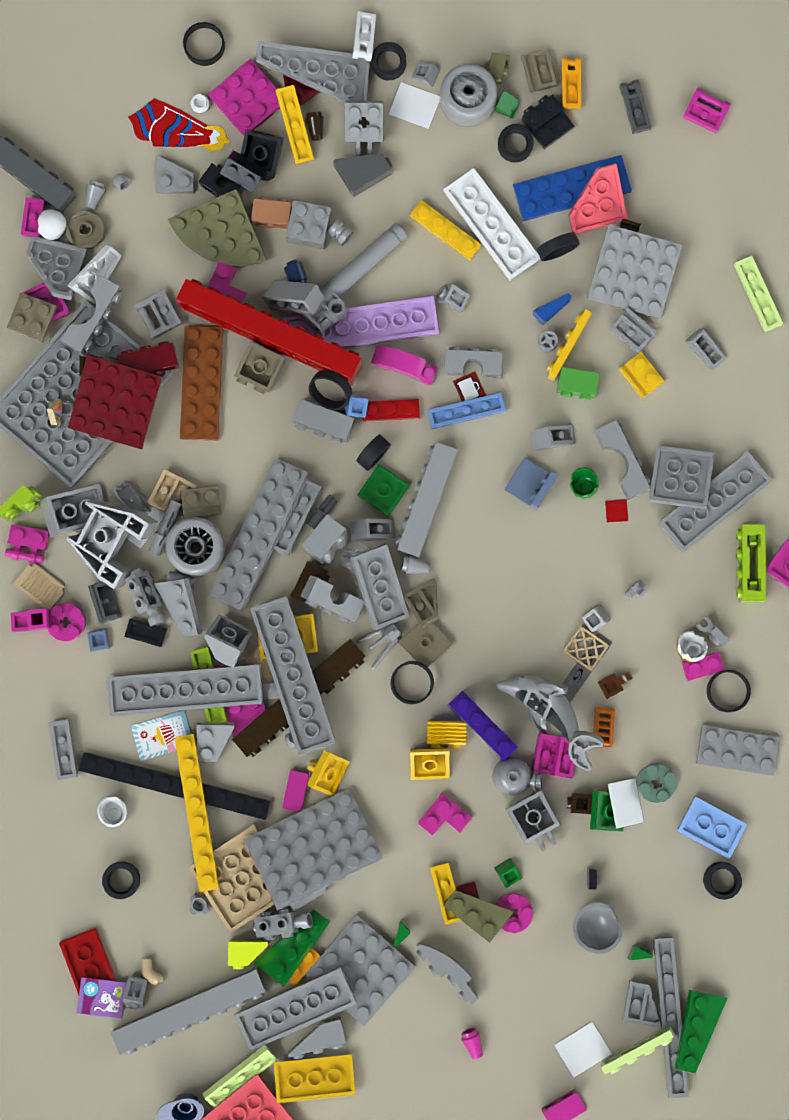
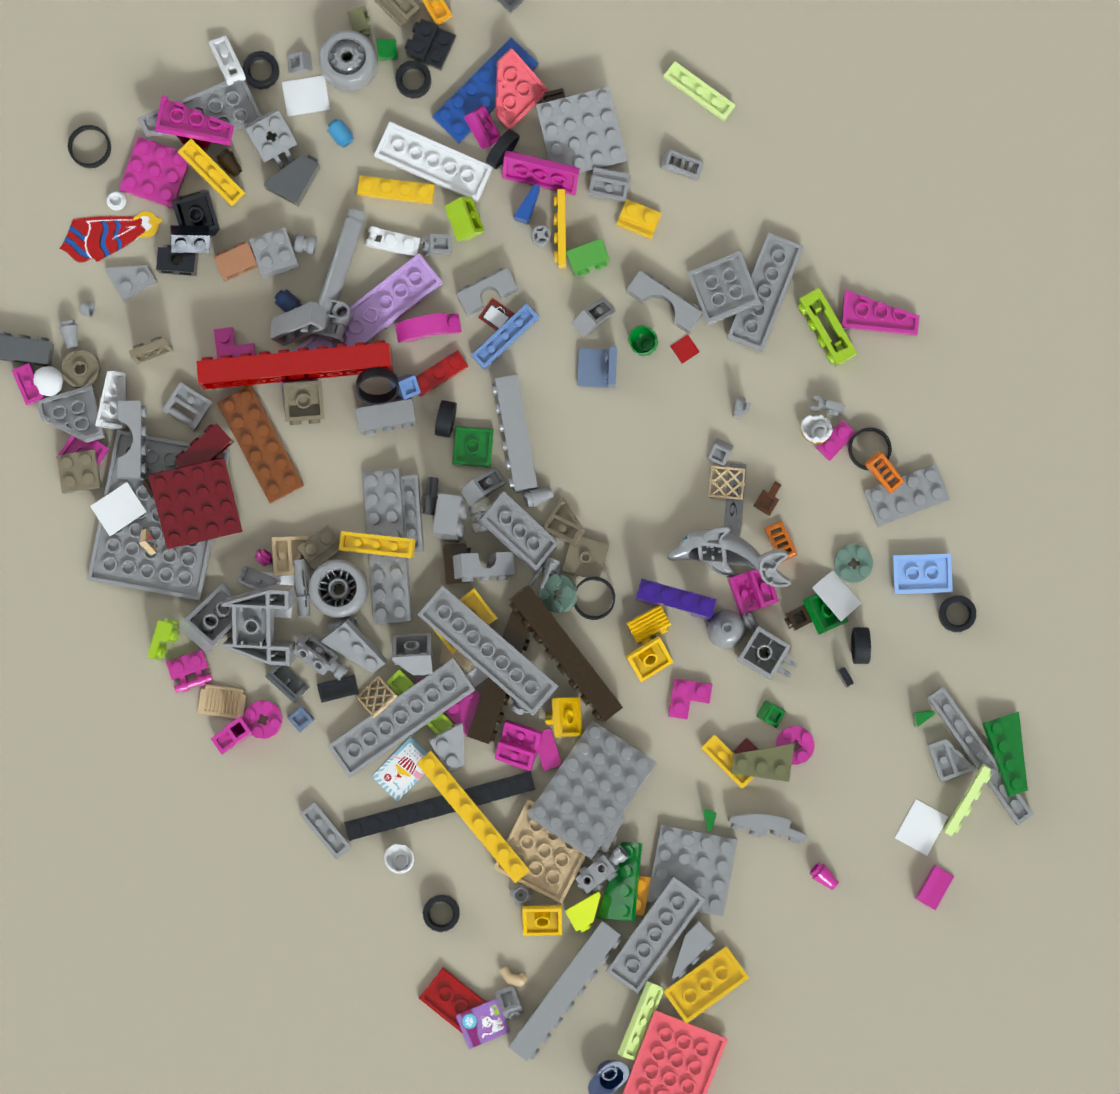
camera: 25 degrees left, 0 degrees up
(47, 368) = (118, 509): none -> white sticker
(147, 482) = (263, 557): none -> dark pink plate
(154, 248) = (157, 347): none -> dark tan plate
(175, 670) = (369, 688): none -> tan window
(205, 937) = (542, 920): none -> yellow slope
(220, 231) = (200, 303): olive plate -> none
(250, 527) = (377, 544): none -> yellow plate
(272, 772) = (518, 745): none -> dark pink slope
(295, 66) = (182, 121): none -> dark pink wing
(359, 717) = (565, 653): none -> dark brown brick
(392, 665) = (568, 593): none -> sand green plate
(417, 274) = (393, 242): none -> white plate
(425, 154) = (340, 133): none -> dark azure brick
(490, 288) = (464, 218): none -> lime brick
(551, 218) = (482, 127): none -> dark pink slope
(579, 285) = (542, 172): none -> dark pink plate
(597, 928) = (873, 715): light grey cylinder -> none
(621, 859) = (861, 645): none -> black tyre
(721, 713) = (879, 476): none -> orange slope

